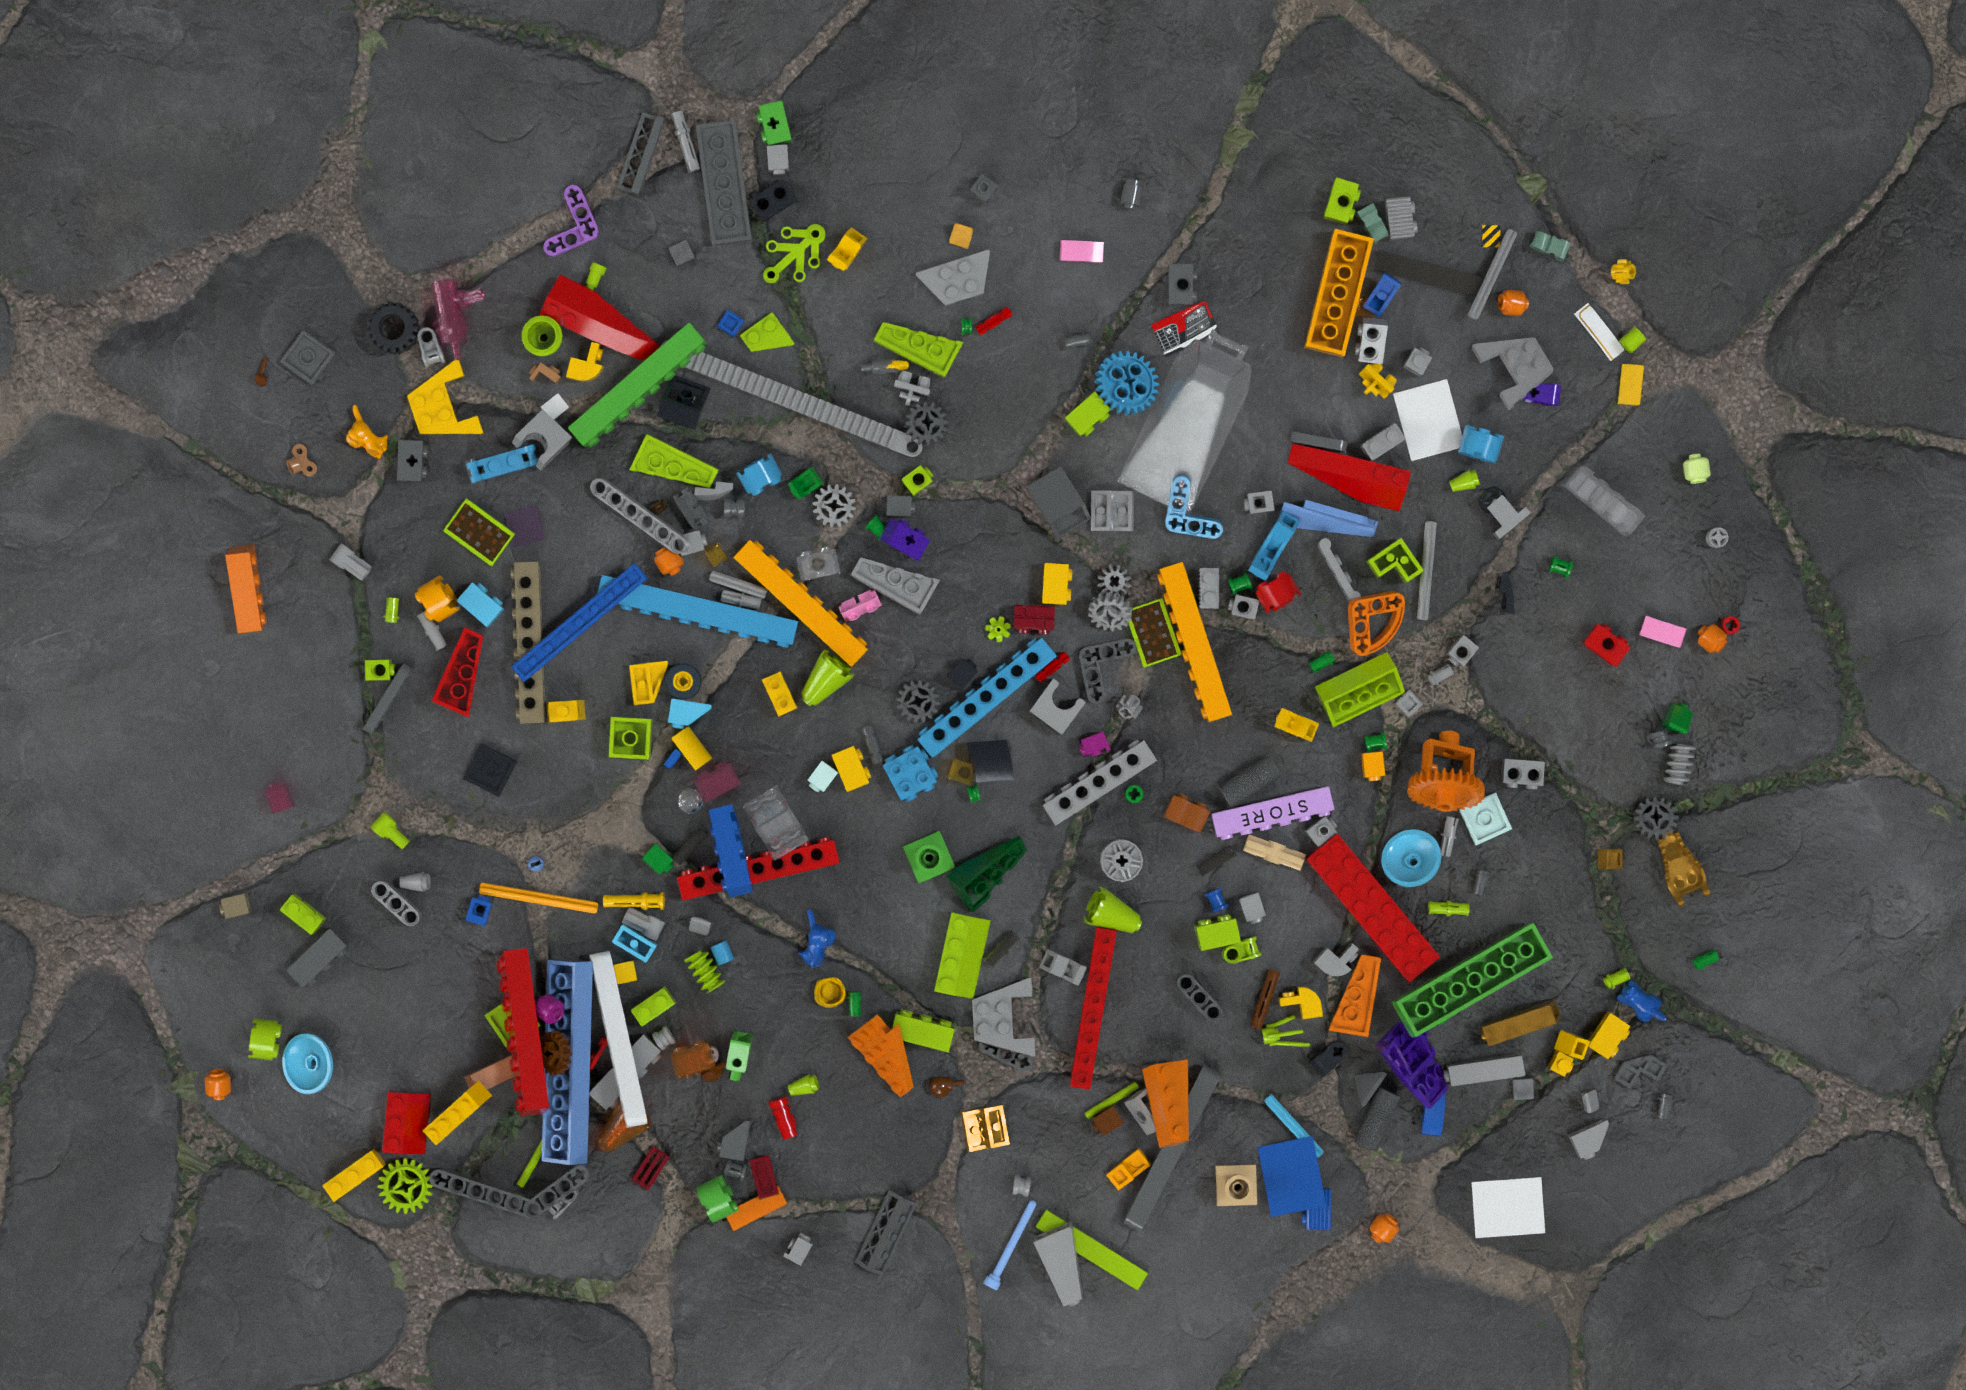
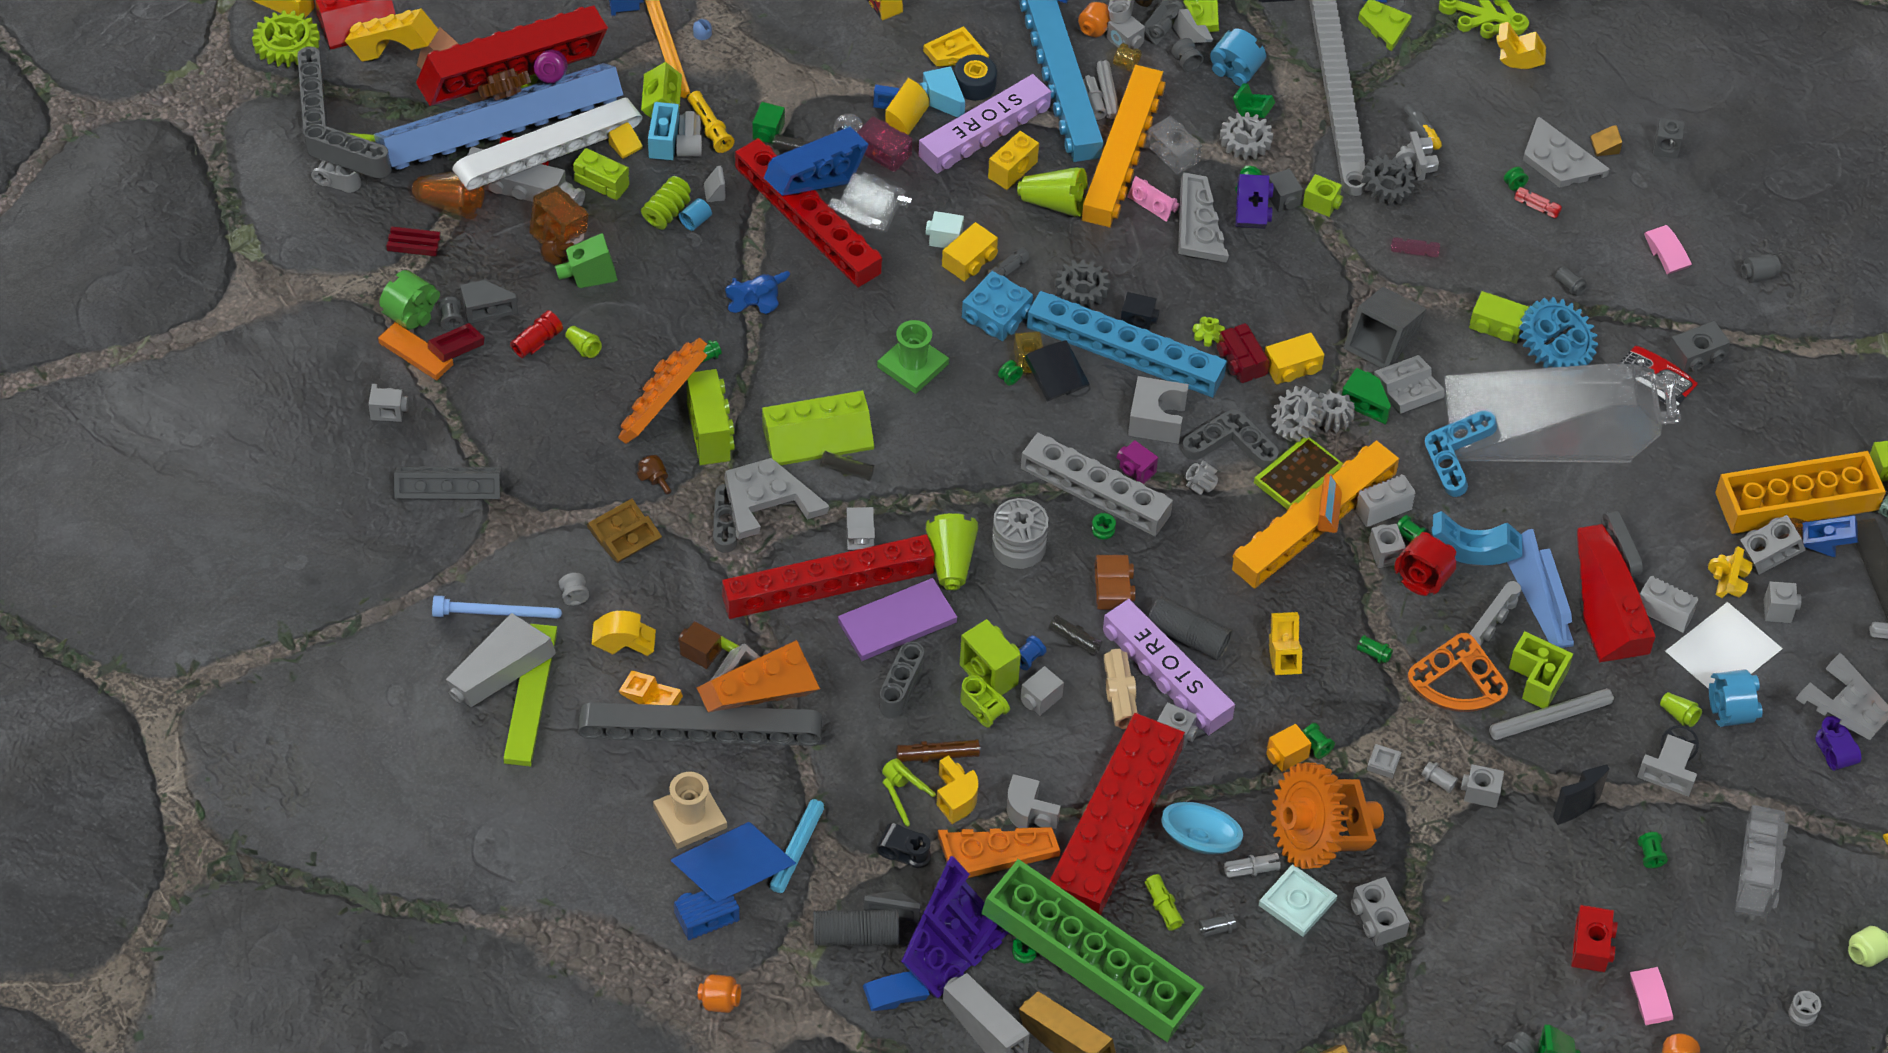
camera: 65 degrees right, 35 degrees down
(594, 927) = (662, 86): none -> lime brick
(630, 738) = (886, 51): lime brick -> none
(732, 696) = (984, 124): none -> lavender brick
(829, 992) = (705, 325): yellow hair -> none
(919, 347) = (1463, 150): lime wing -> none
(979, 875) = (922, 415): dark green wedge -> none
(993, 436) = (1415, 247): none -> clear pink axle
(1052, 667) = (1203, 395): red axle -> none
(1077, 1169) = (623, 629): none -> yellow brick
(1110, 549) = (1368, 395): none -> green slope
(1145, 974) = (897, 619): none -> medium lavender tile
(1204, 636) = (1329, 505): none -> orange slope
(1266, 499) = (1516, 511): light grey brick -> none
(1360, 689) = (1367, 699): lime slope -> none

